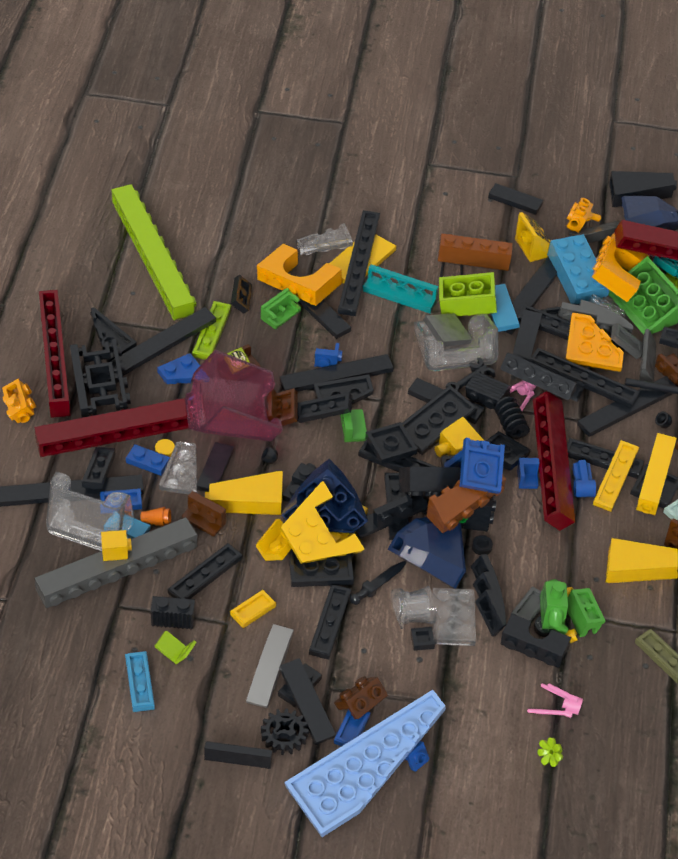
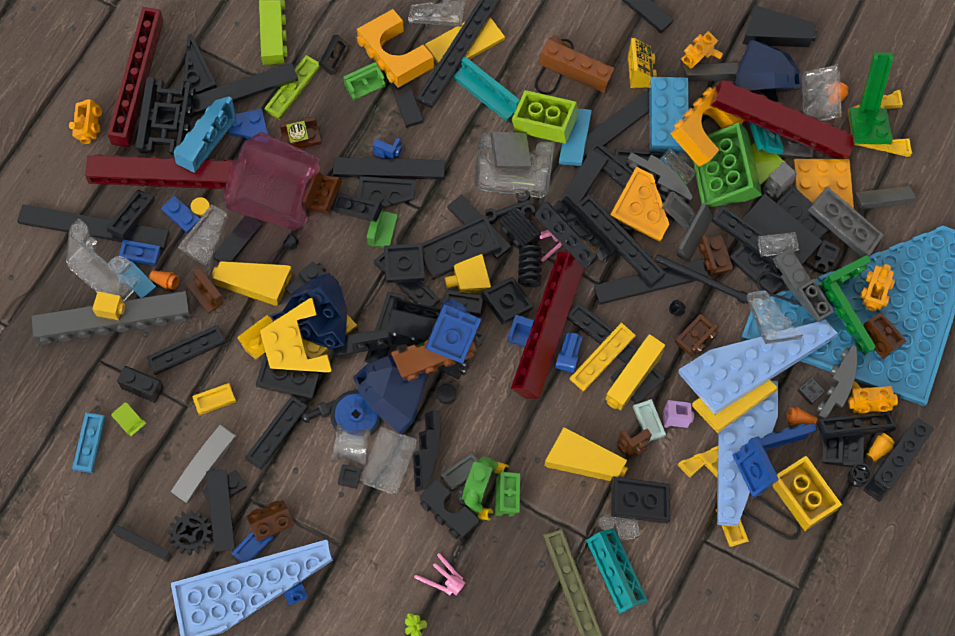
camera: 20 degrees right, 20 degrees up
(149, 379) = (205, 134): none -> dark azure wedge
(401, 576) = (346, 405): none -> blue wheel

